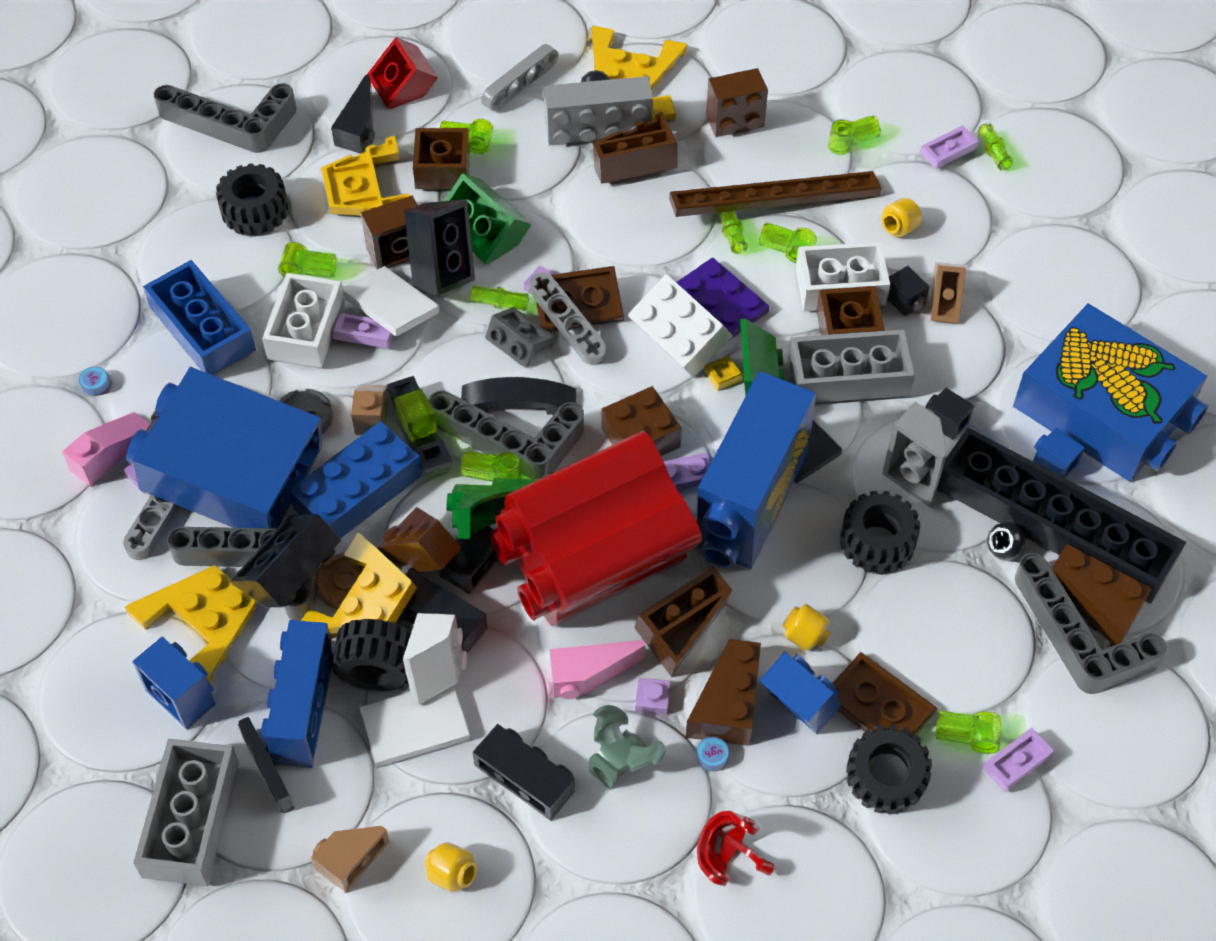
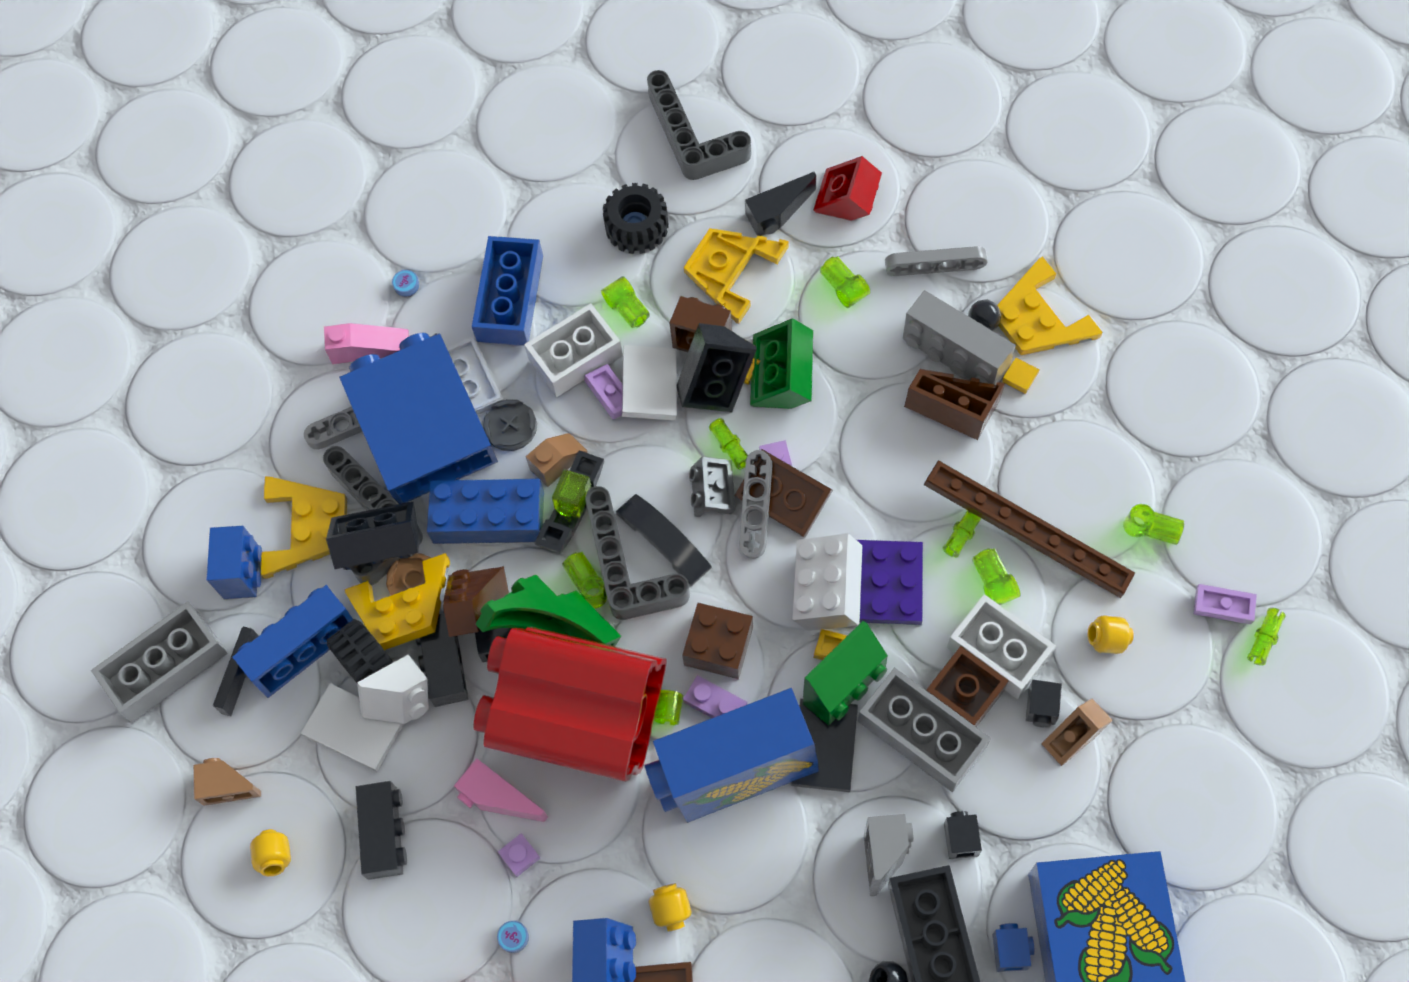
camera: 50 degrees right, 10 degrees up
(440, 157) = (800, 289): reddish brown brick -> none
(619, 750) = (451, 875): sand green animal -> none
(682, 618) = (589, 819): reddish brown wedge -> none
(728, 697) = (553, 908): reddish brown wedge -> none
(736, 102) = (1077, 421): reddish brown brick -> none
(883, 512) = (804, 858): black tyre -> none

